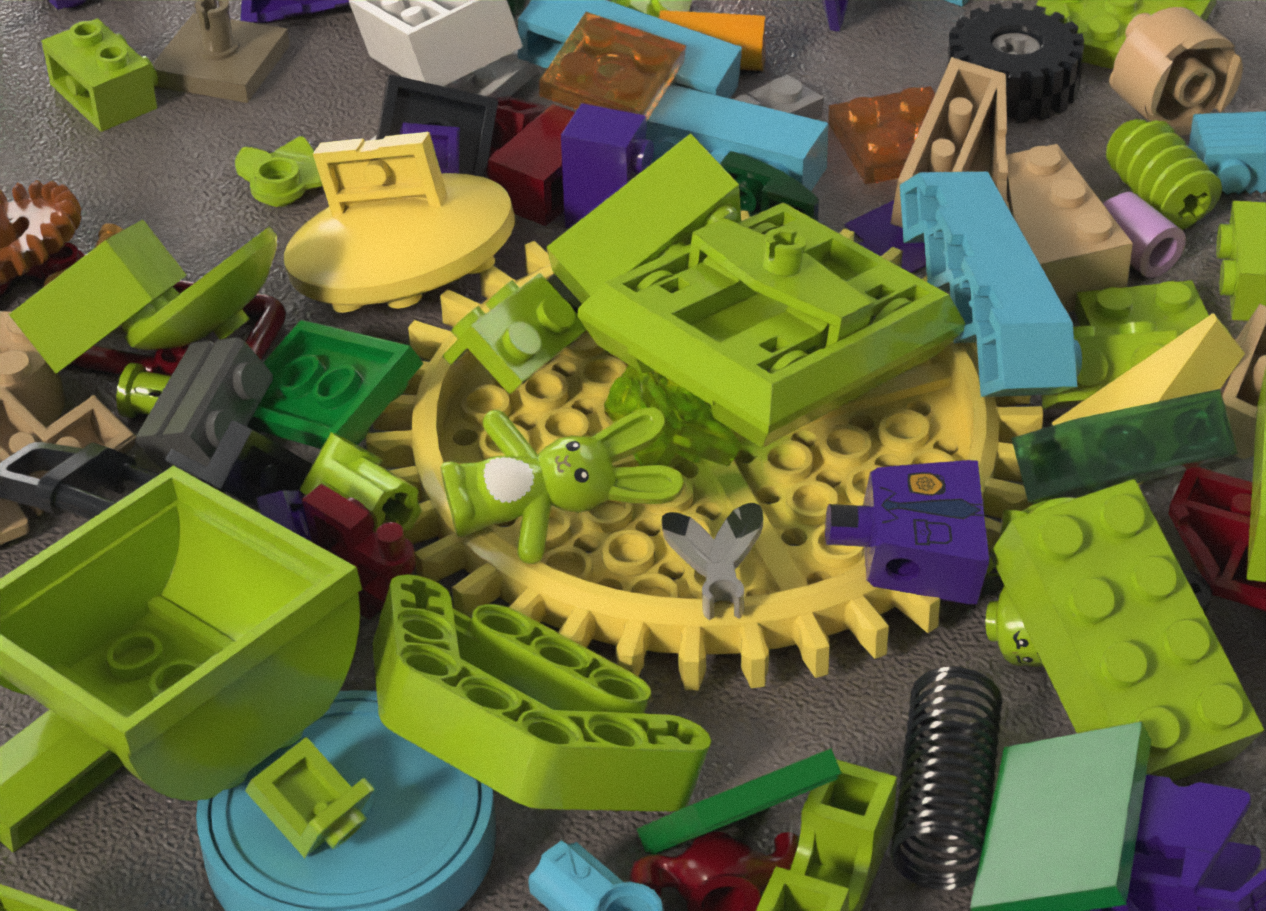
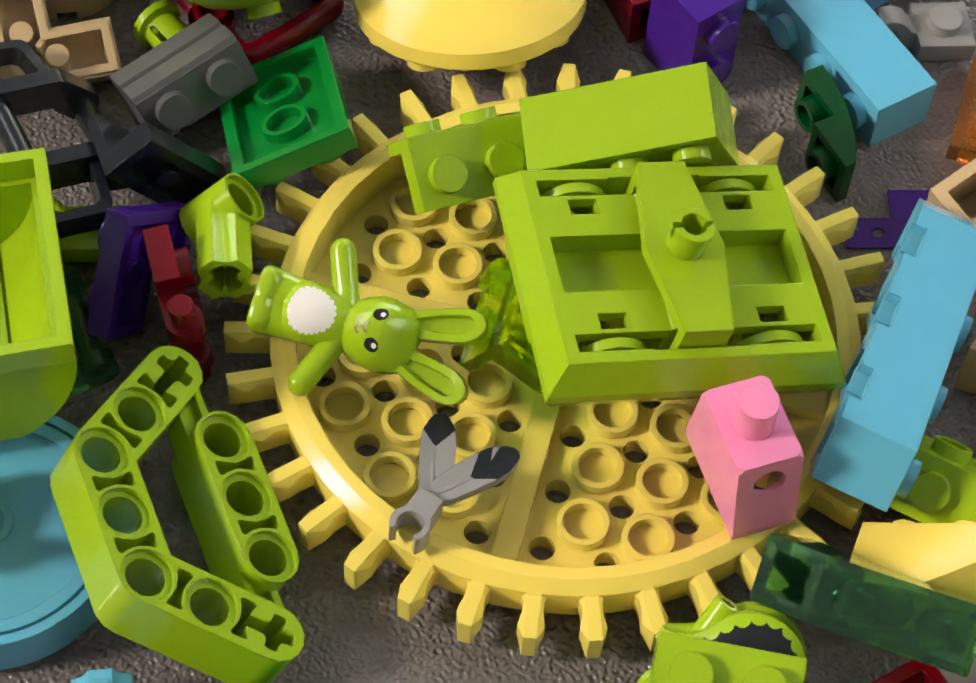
camera: 30 degrees right, 15 degrees up
(919, 529) = (621, 567): dark purple torso -> none
(941, 395) = (746, 441): none -> bright pink torso

